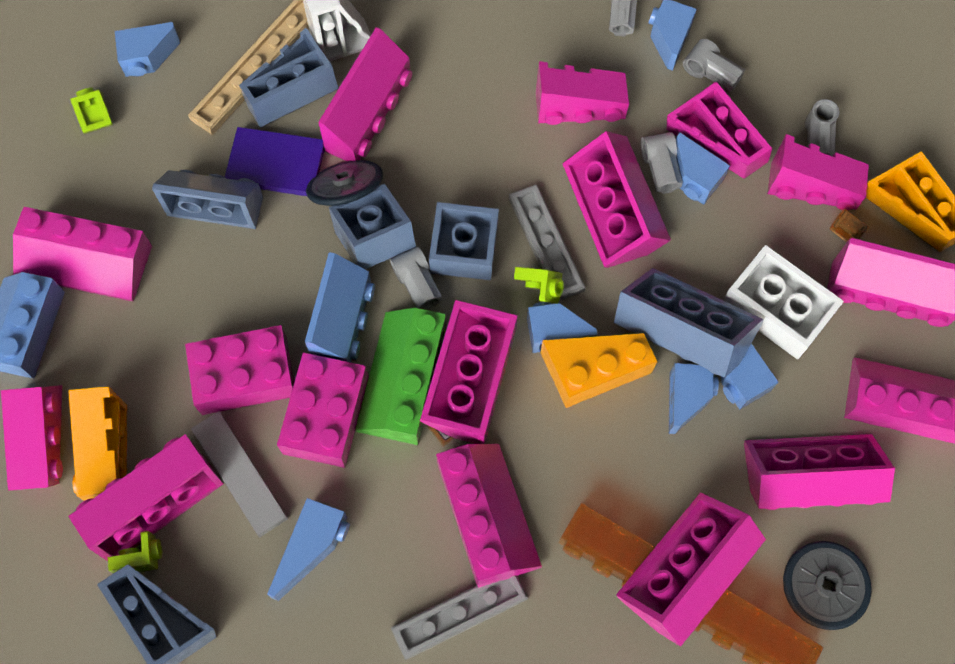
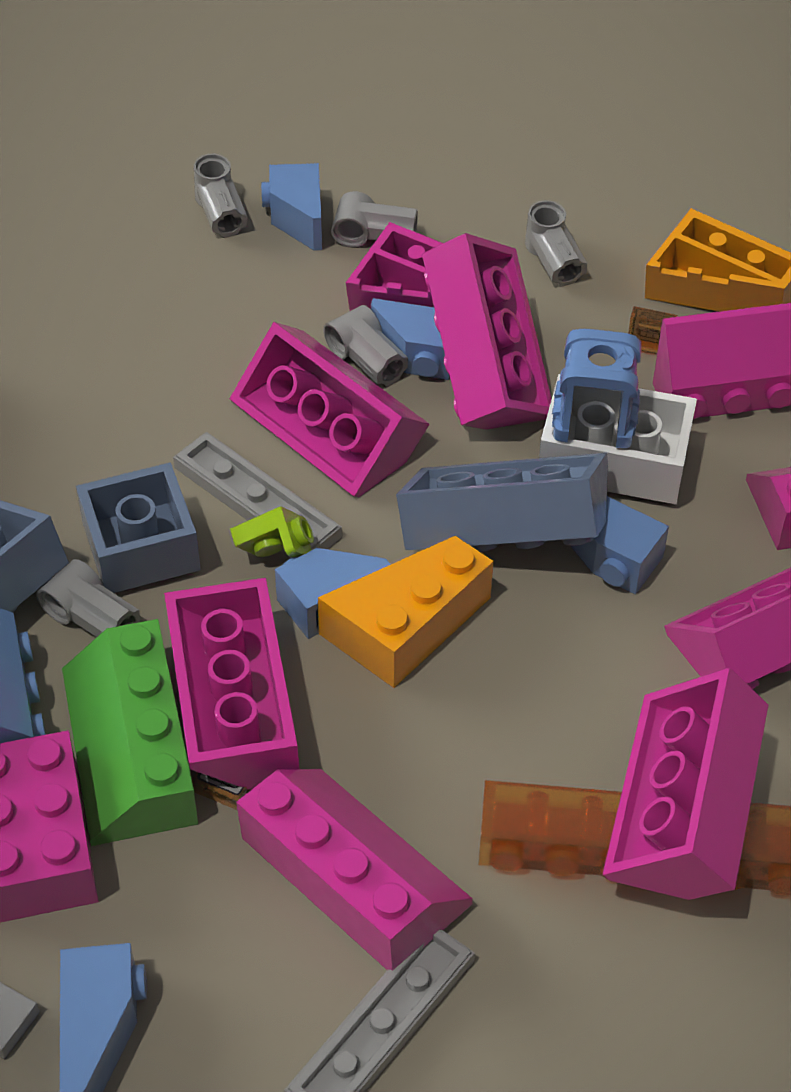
camera: 25 degrees left, 20 degrees down
(580, 95) = (210, 308): dark pink wedge -> none
(689, 393) = (556, 593): medium blue slope -> none
(737, 193) = (487, 333): none -> dark pink slope
(766, 269) = (582, 372): none -> medium blue piece
(817, 177) = (581, 287): dark pink wedge -> none

